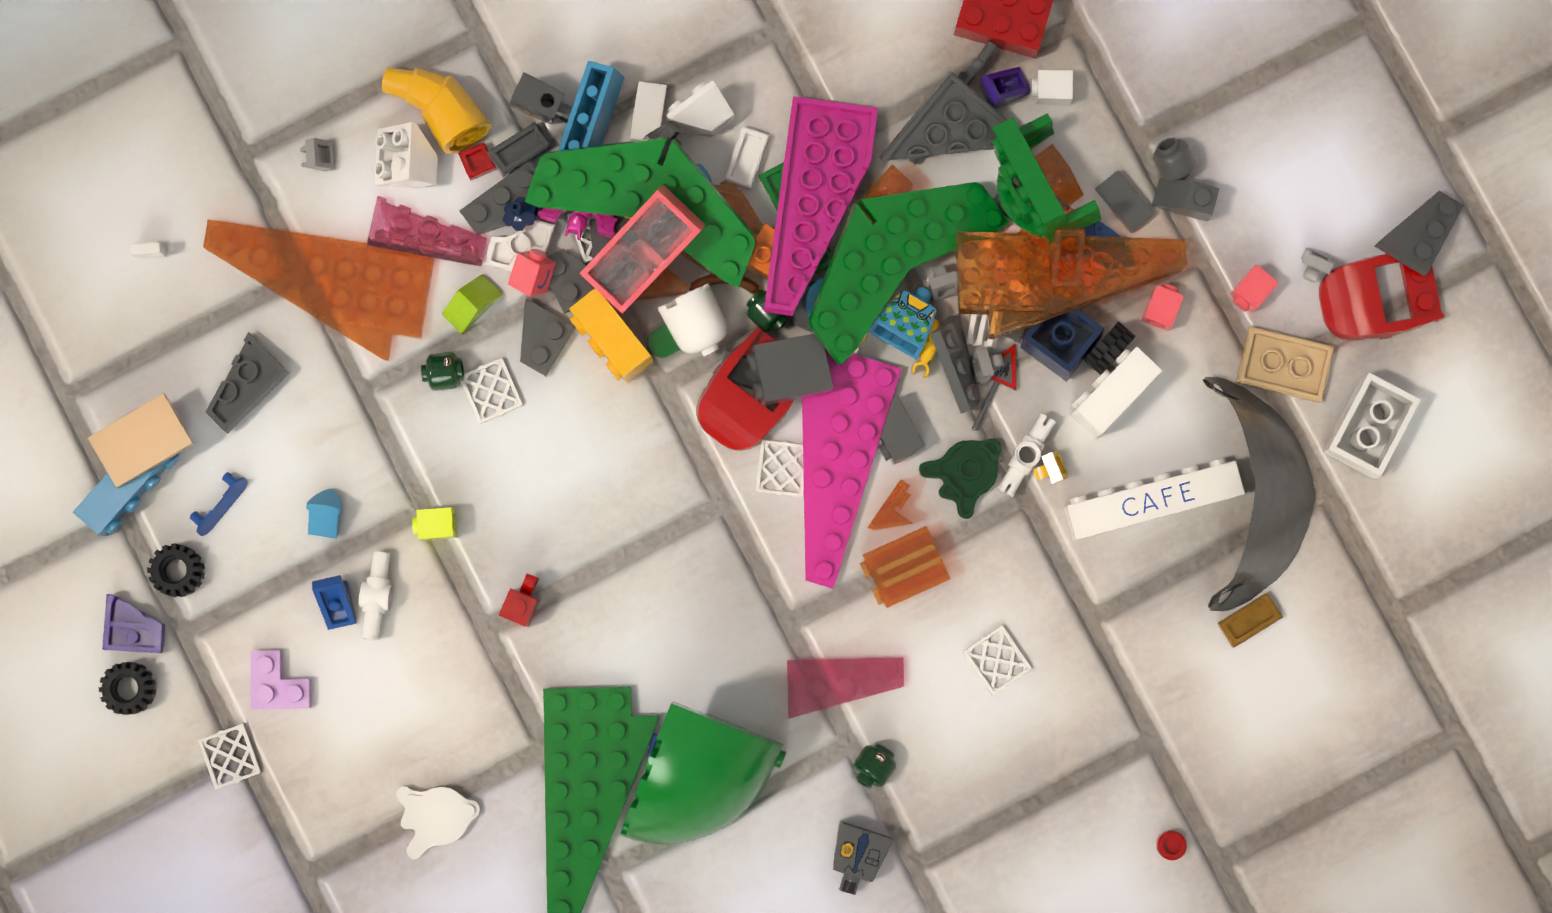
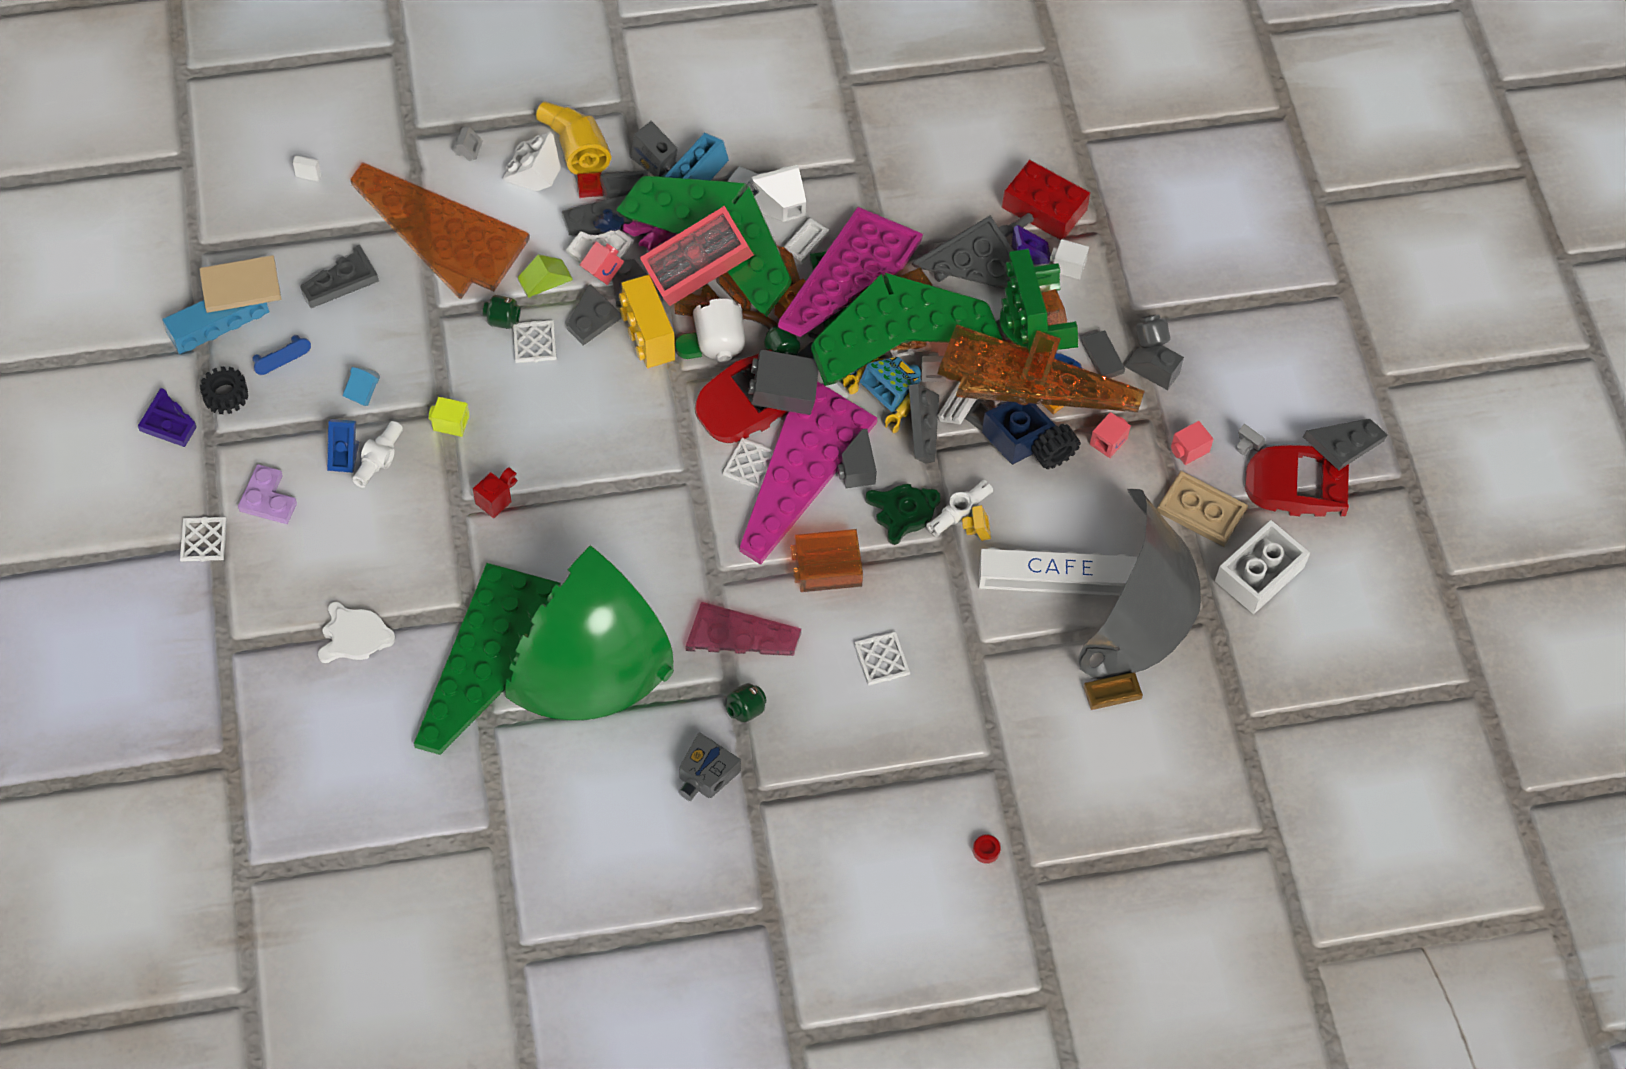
camera: 10 degrees right, 25 degrees down
(110, 693) = (141, 449): black tyre -> none
(409, 233) = (531, 220): clear pink wing -> none
(887, 516) = (829, 515): clear orange slope -> none
(985, 366) = (948, 433): light grey tile -> none
(1005, 376) = (959, 446): piece -> none
(1114, 391) = (1050, 478): white brick -> none

